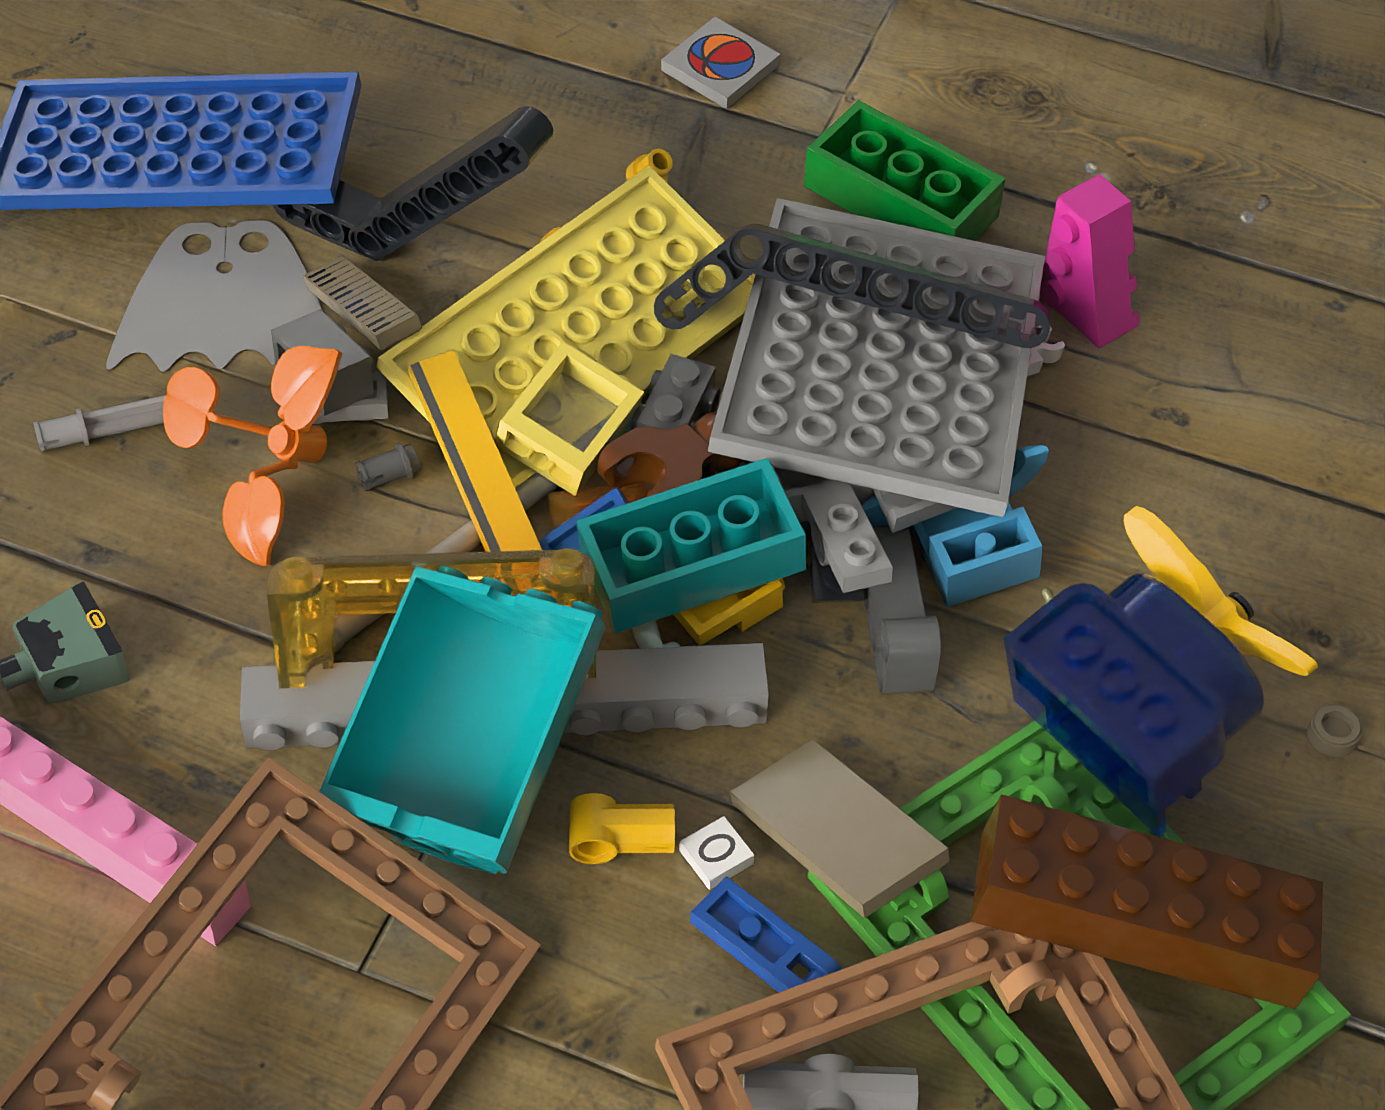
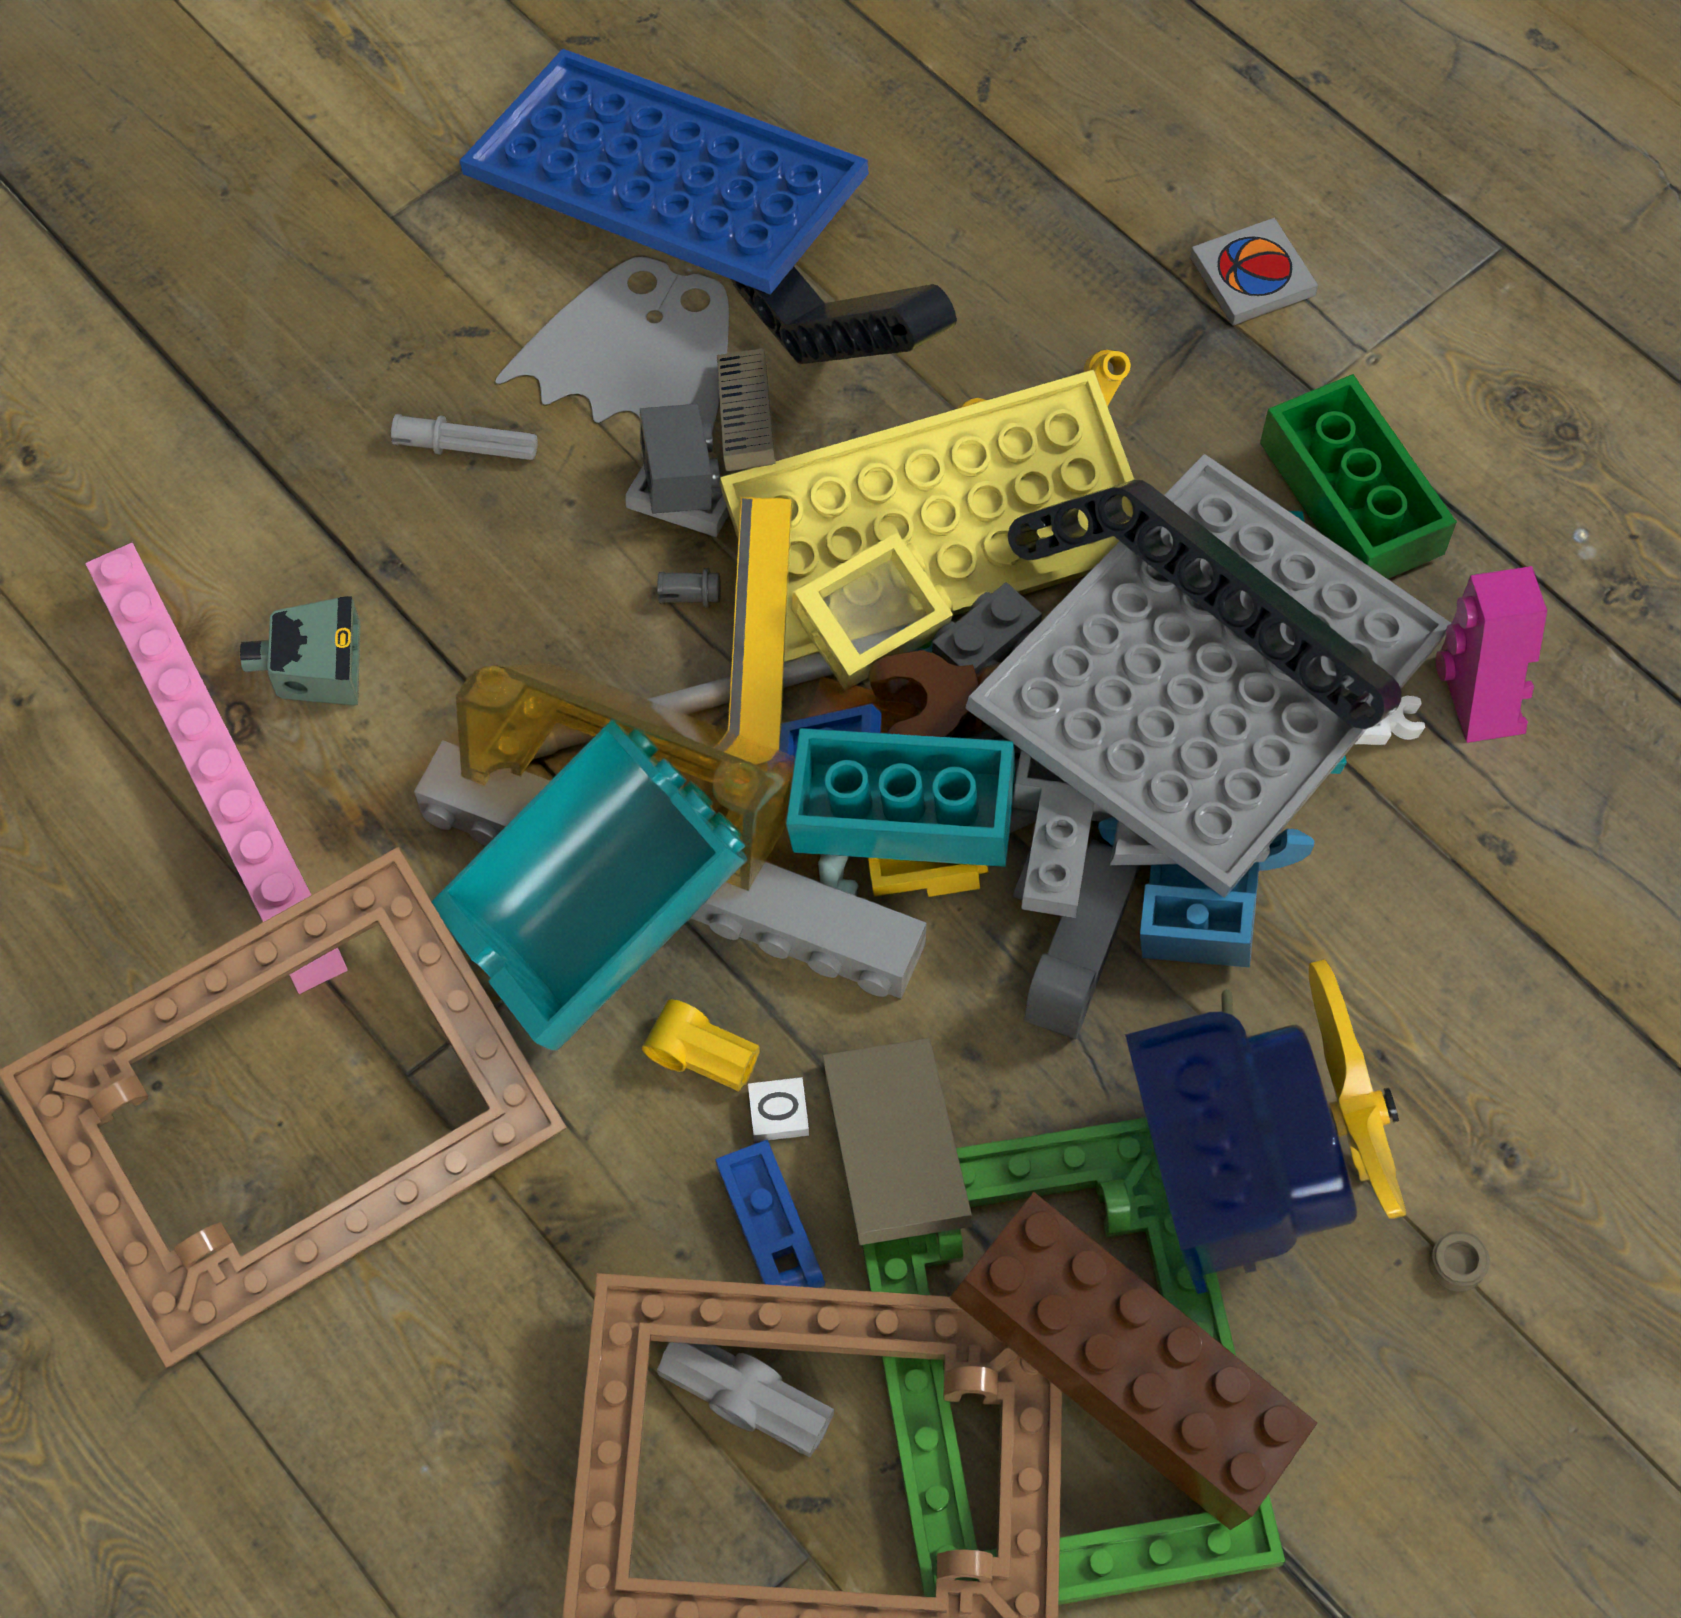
camera: 30 degrees right, 10 degrees up
(301, 386) = (619, 486): orange plant -> none

